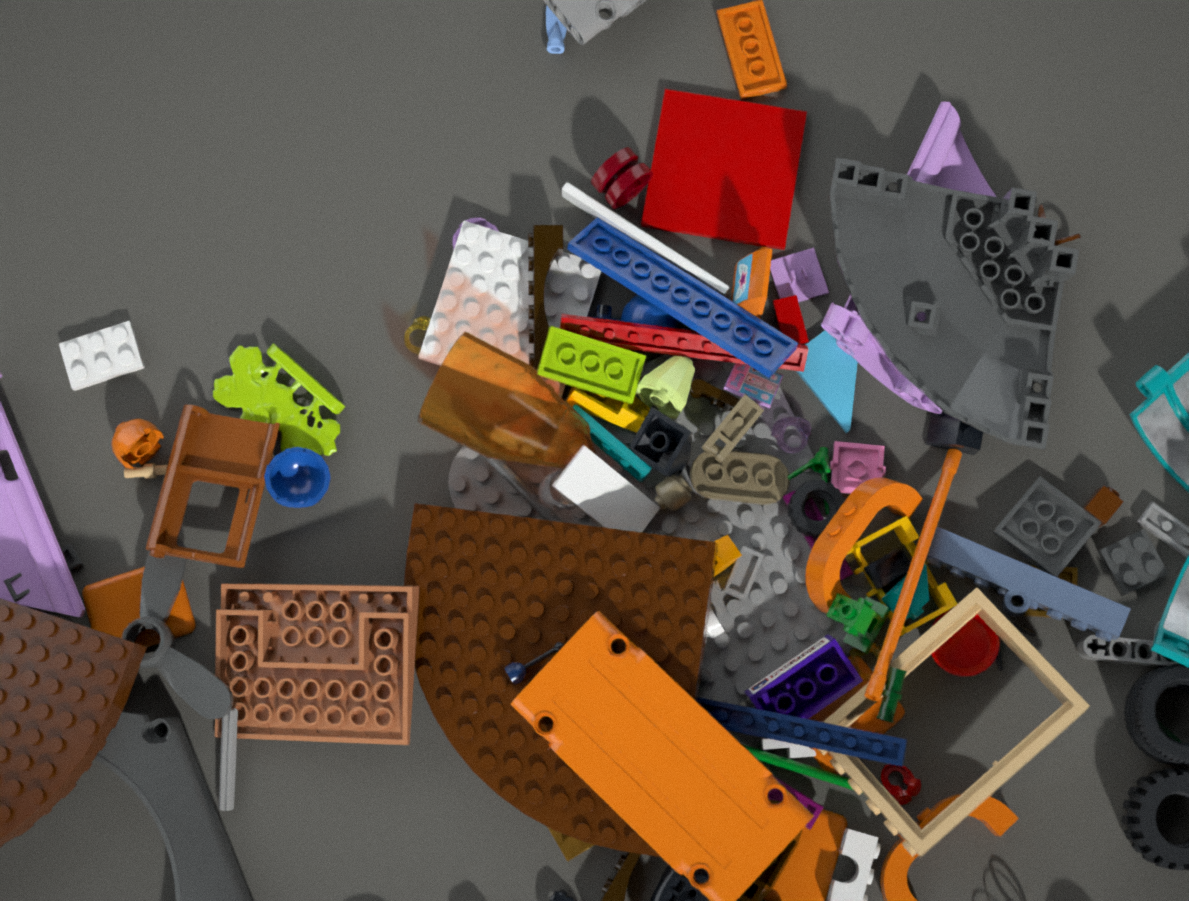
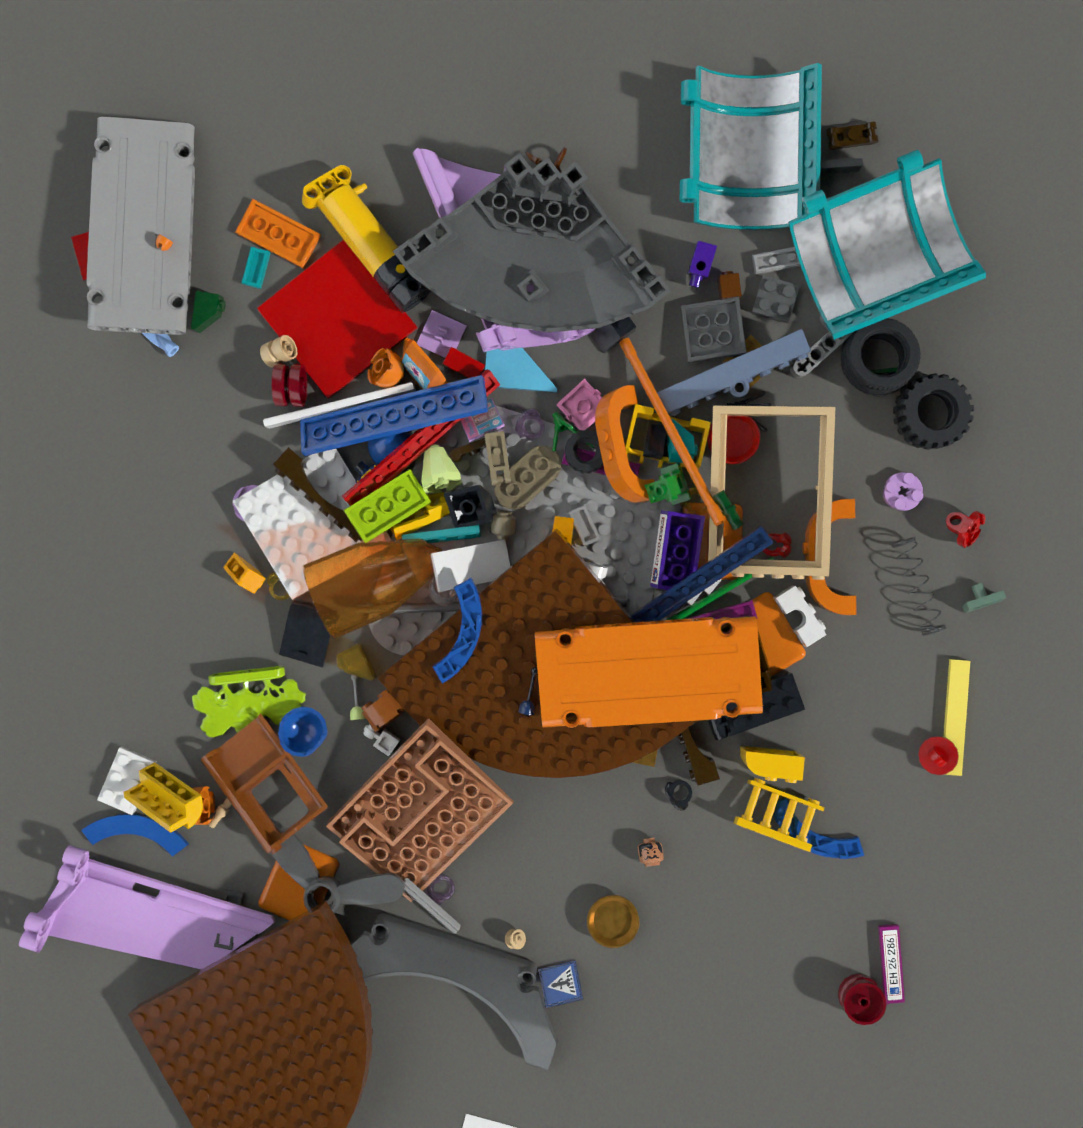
camera: 50 degrees left, 10 degrees up
(66, 404) = (136, 825): none -> blue tile
(118, 403) = (165, 798): none -> yellow brick
(241, 756) = (437, 898): none -> clear purple piece
(267, 877) = (515, 939): none -> tan wheel
(356, 568) = (385, 741): none -> white plate
(362, 516) = (356, 712): none -> hinge
(385, 537) = (382, 711): none -> dark orange brick
(396, 399) = (305, 635): none -> black door
(403, 291) = (244, 573): none -> light orange slope
(410, 469) = (355, 662): none -> clear yellow slope
(540, 548) = (468, 634): none -> blue tile
(621, 46) = (207, 310): none -> dark green slope
(644, 141) = (278, 351): none -> tan wheel
(701, 56) = (256, 267): none -> teal tile
(720, 253) = (386, 368): none -> orange cylinder
(823, 126) = (364, 235): none -> yellow piece
(1084, 857) = (892, 487): none -> lavender plate
(1107, 452) = (702, 254): none -> dark purple torso

